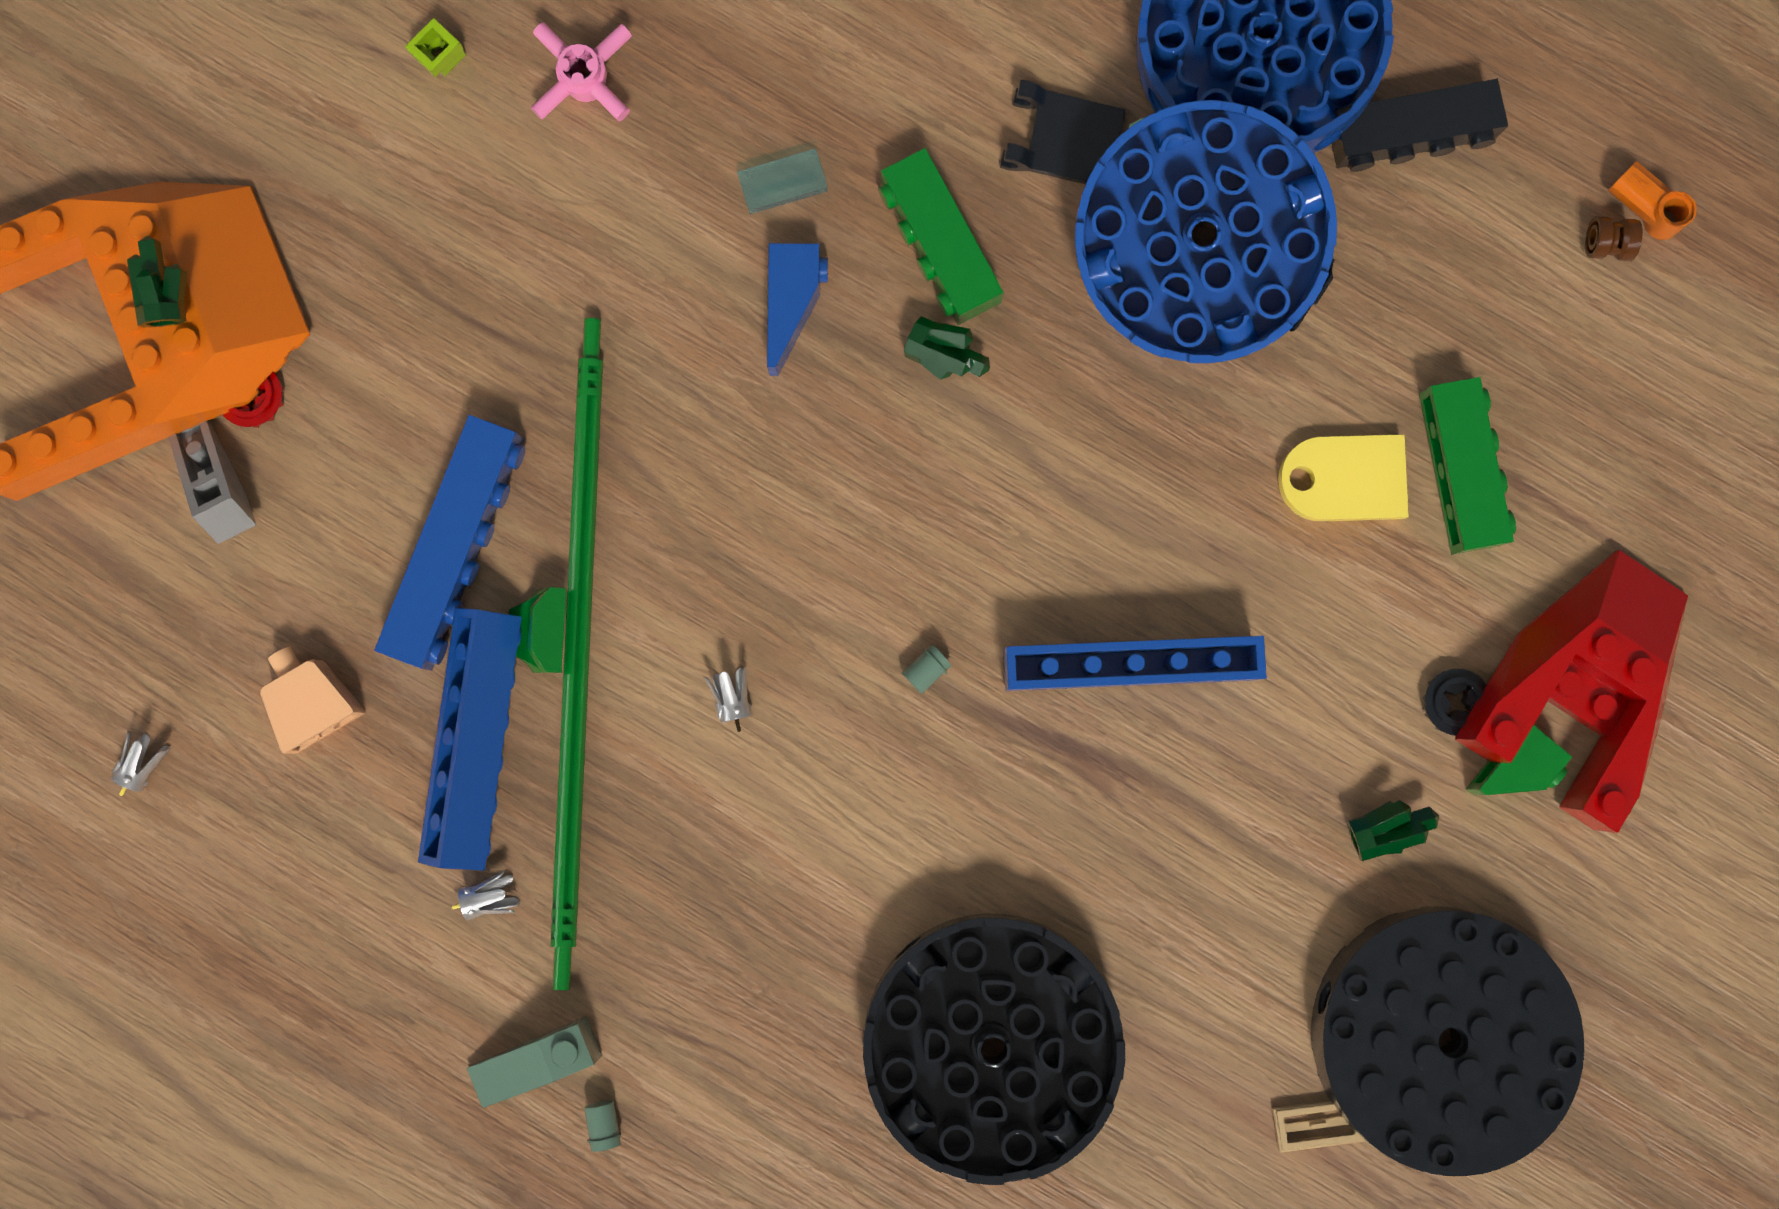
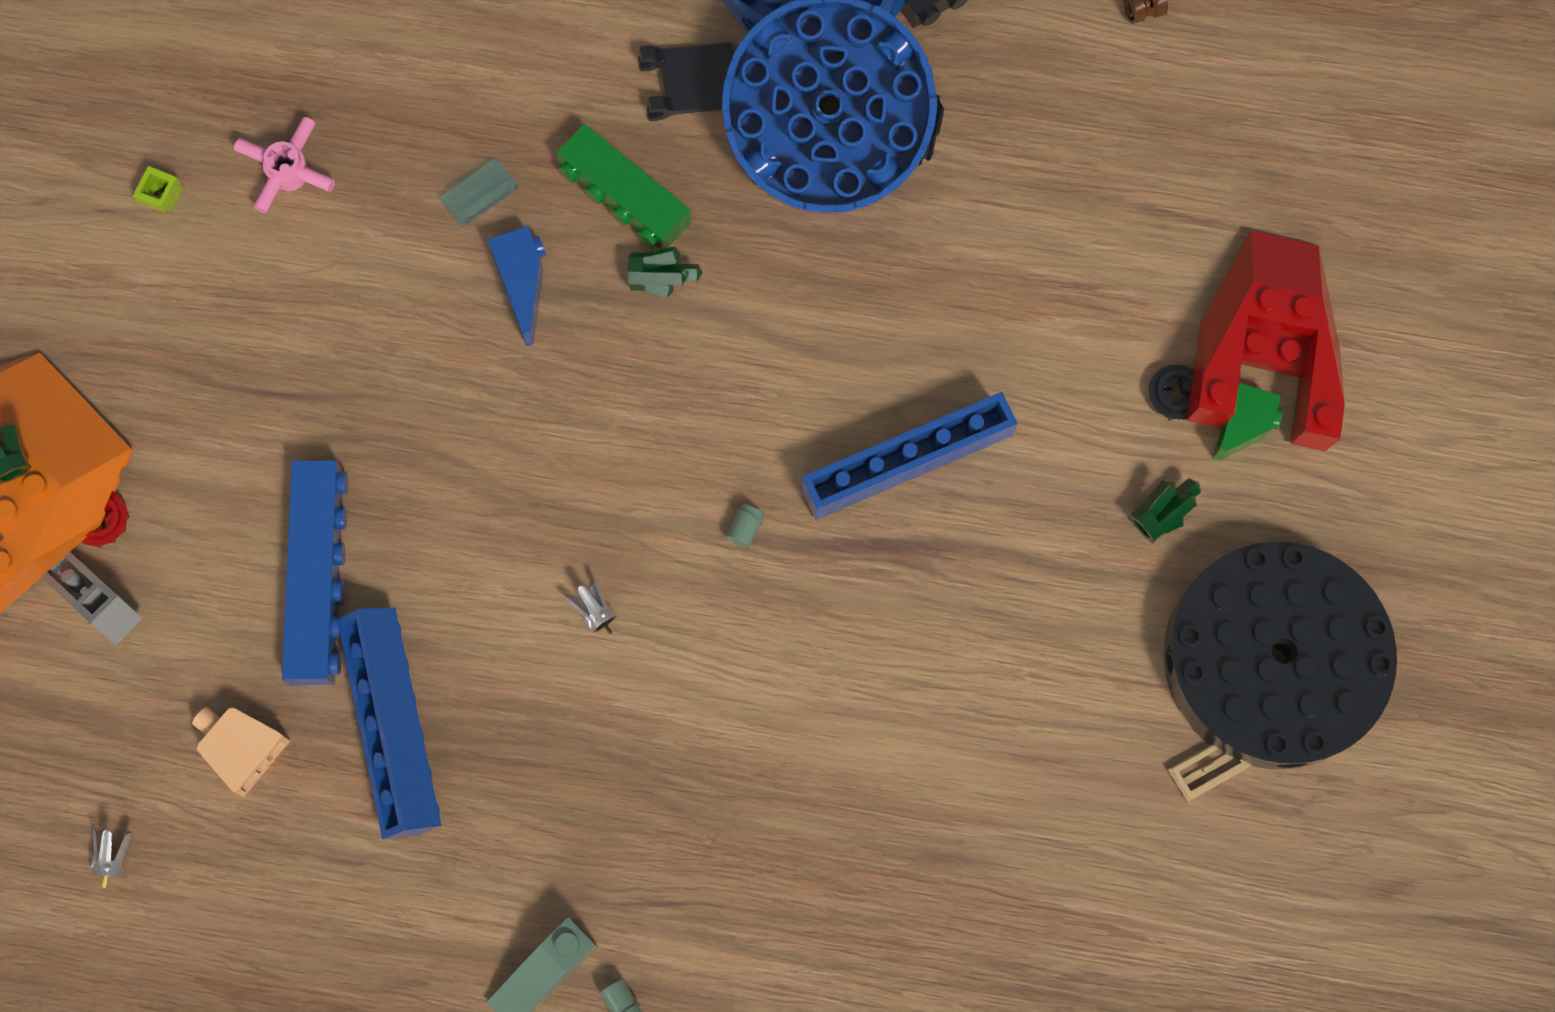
camera: 25 degrees left, 10 degrees down
(486, 898) = (442, 853): flat silver piece -> none
(542, 630) = (417, 613): green slope -> none
(576, 655) = (454, 629): green axle -> none
(1004, 1112) = (908, 859): black brick -> none
(1349, 478) = (1021, 255): light yellow tile -> none
(1467, 465) = (1107, 210): green brick -> none

